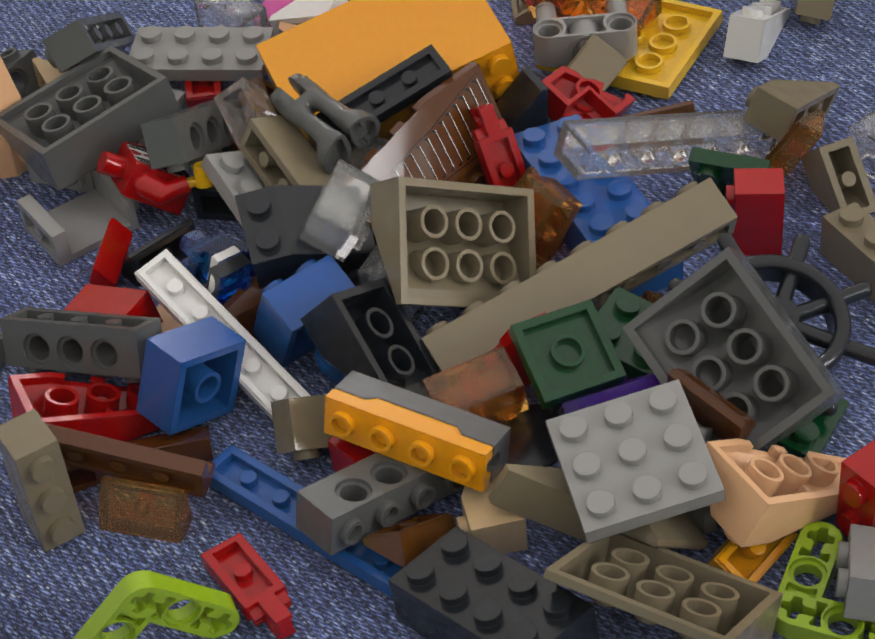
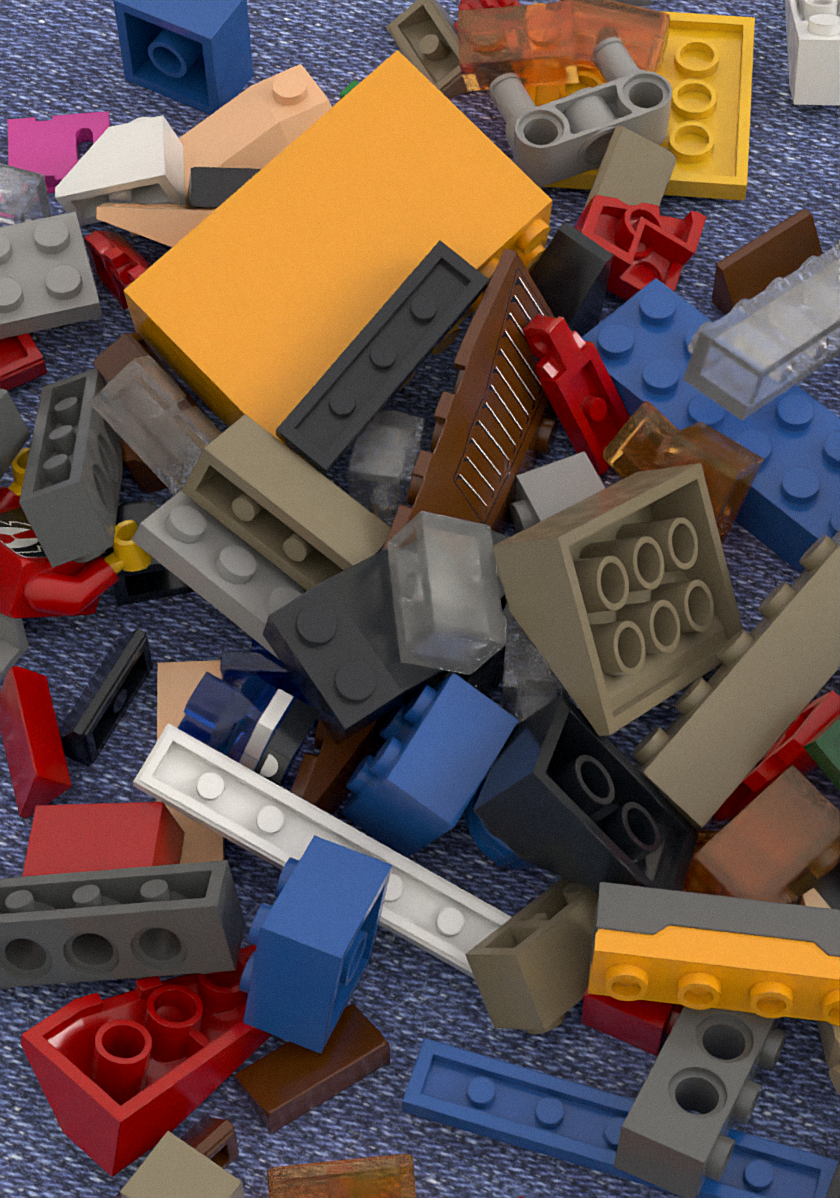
camera: 25 degrees left, 15 degrees up
(133, 461) = (304, 1136): reddish brown hinge -> none
(358, 125) = (352, 459): dark grey piece -> none
(409, 537) = (790, 1126): reddish brown slope -> none

